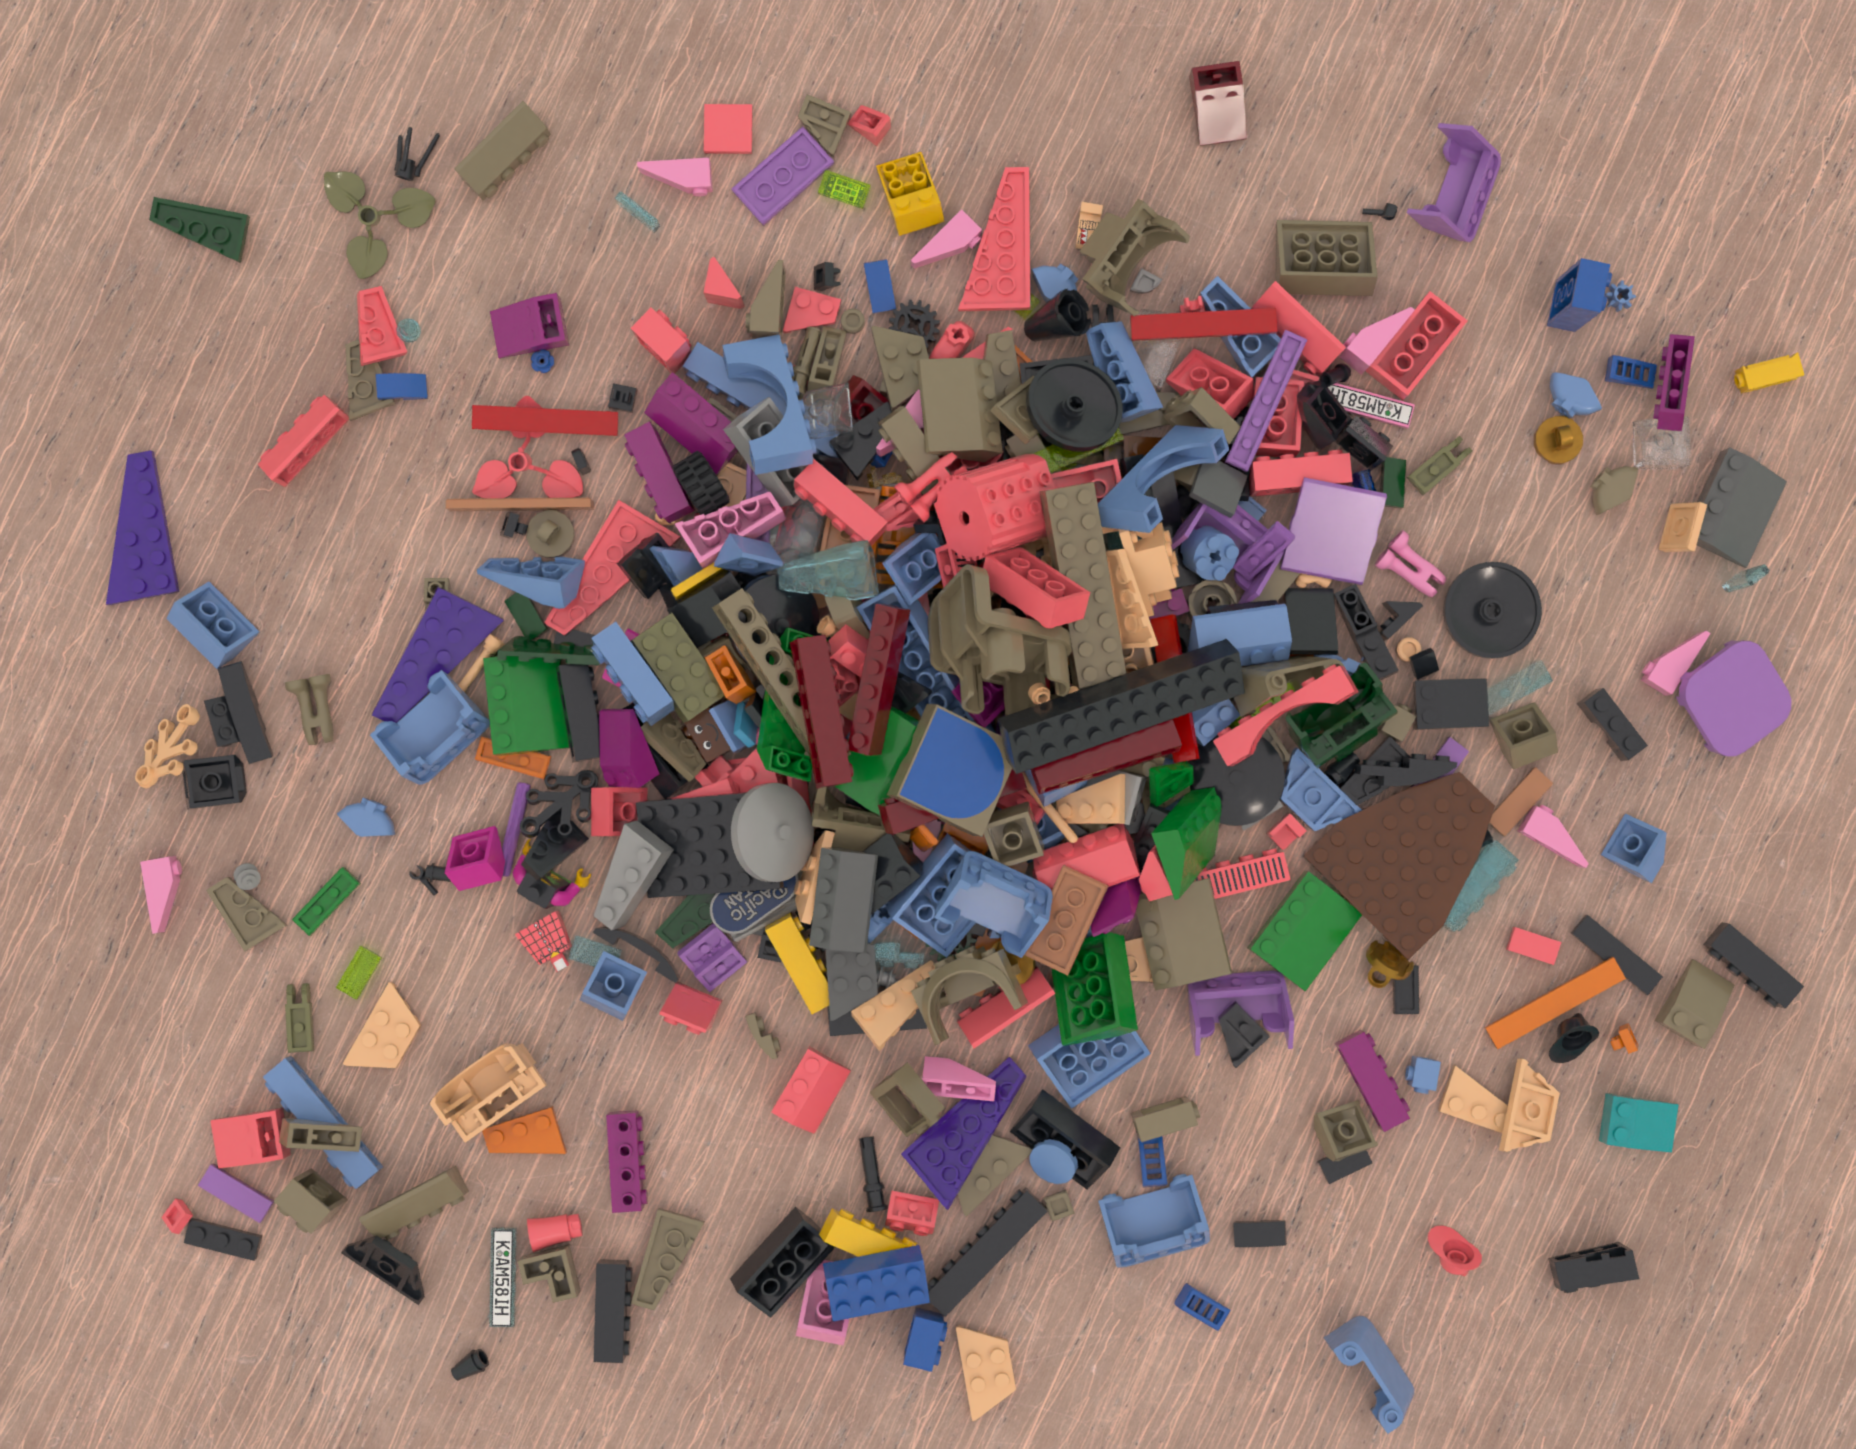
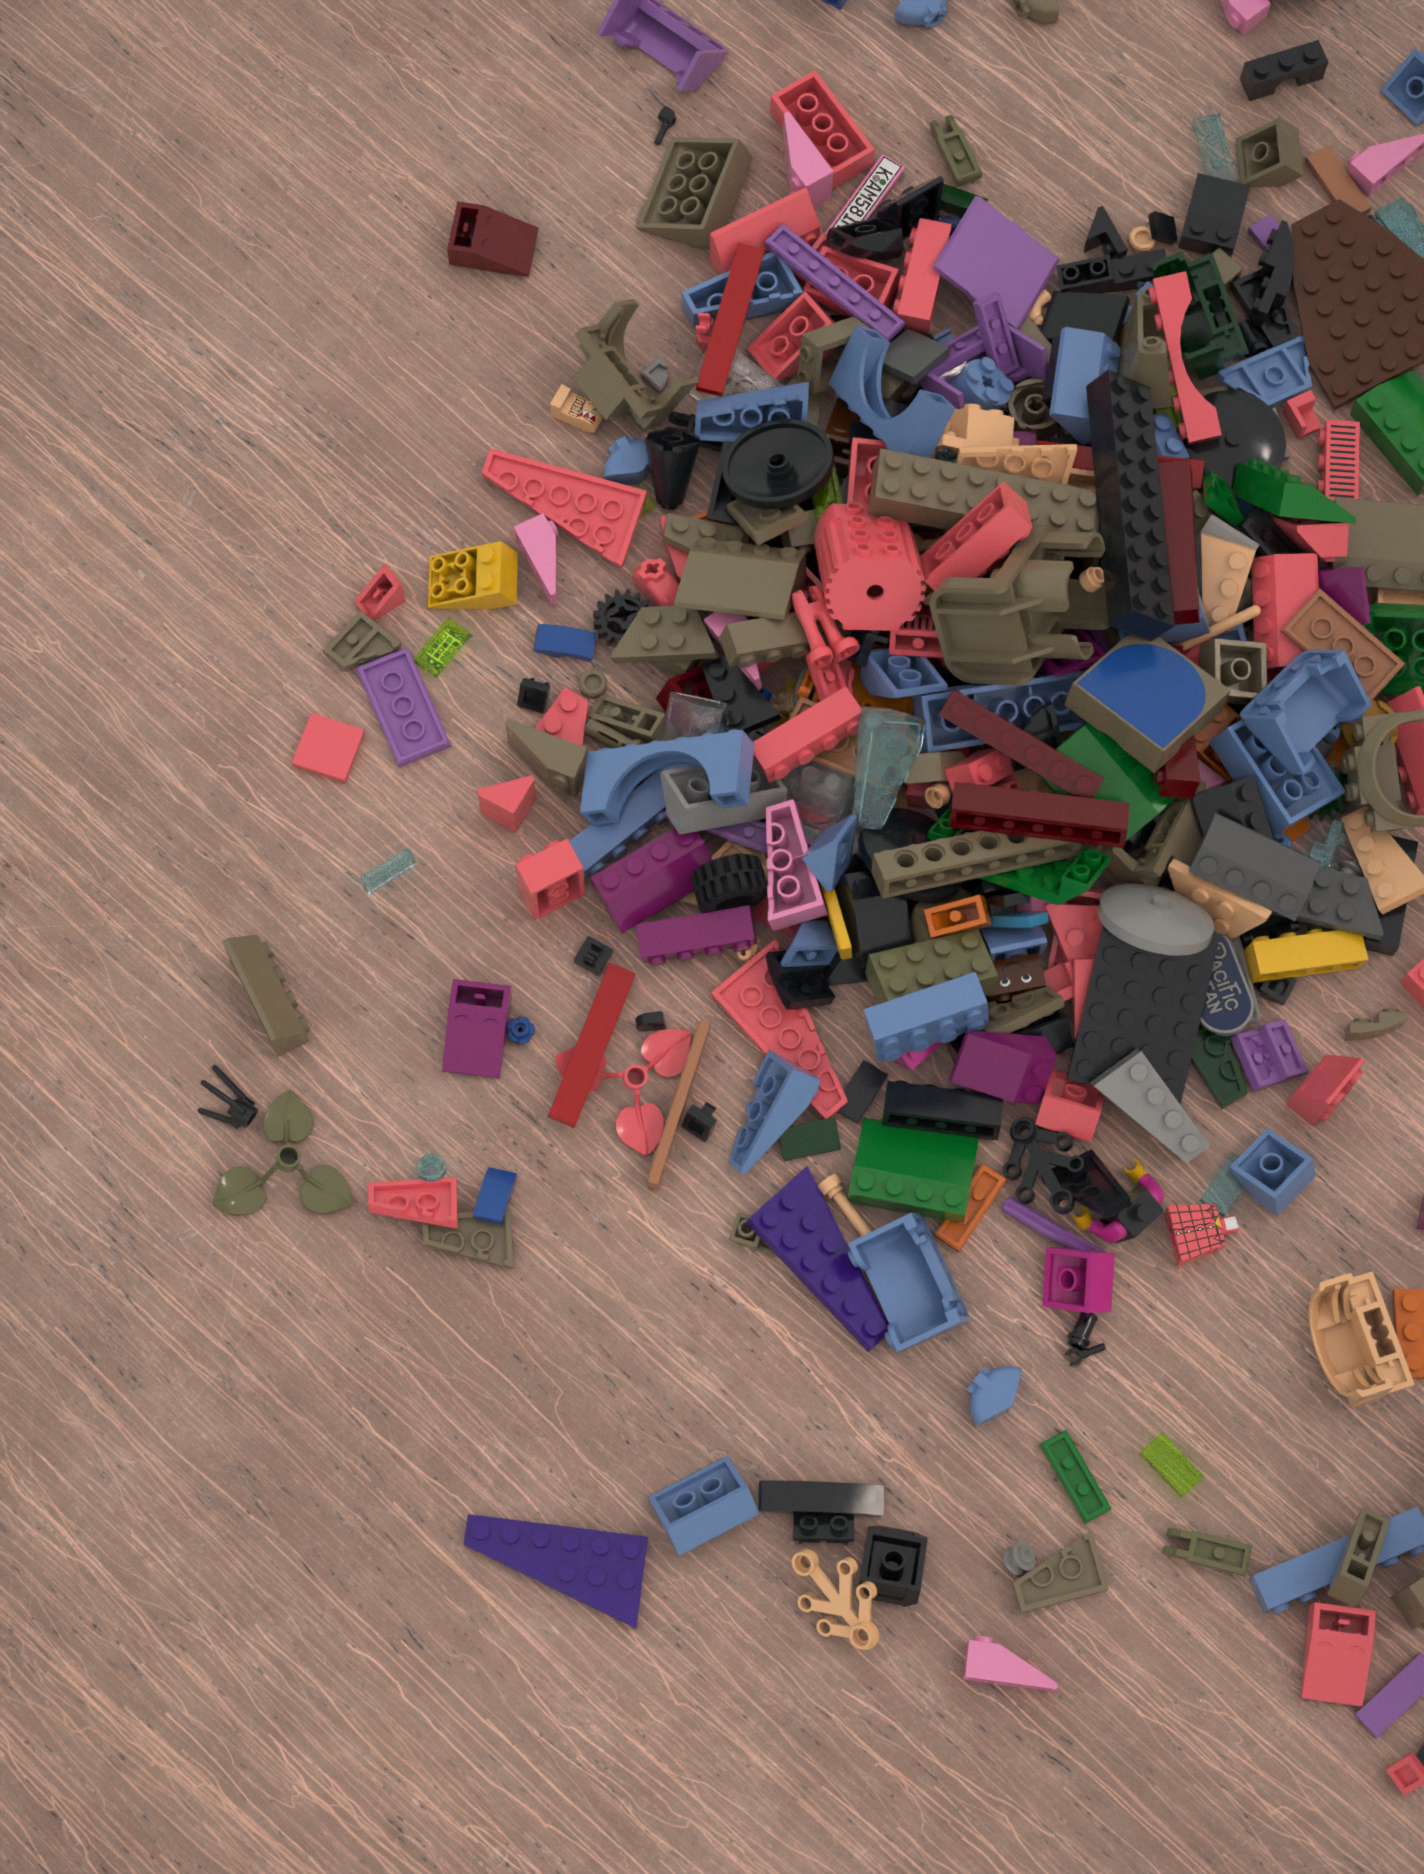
camera: 75 degrees left, 15 degrees down
(207, 226) = (224, 1362): dark green wing -> none
(303, 440) = (519, 1325): coral slope -> none
(323, 718) = (856, 1409): dark tan piece -> none
(385, 1033) = (1253, 1455): light nougat wing -> none
(548, 651) = (866, 1114): dark green wing -> none
(550, 533) = (723, 1083): dark tan tile -> none
(665, 966) = (1262, 1108): black slope -> none
(684, 174) = (364, 809): bright pink slope -> none
(923, 838) = (1210, 766): orange slope -> none
(1339, 374) = (825, 215): black pin -> none
(1425, 569) = (1065, 196): bright pink piece -> none
(1492, 610) = (1128, 143): black dish -> none
(1558, 440) = (965, 33): pearl gold tile -> none

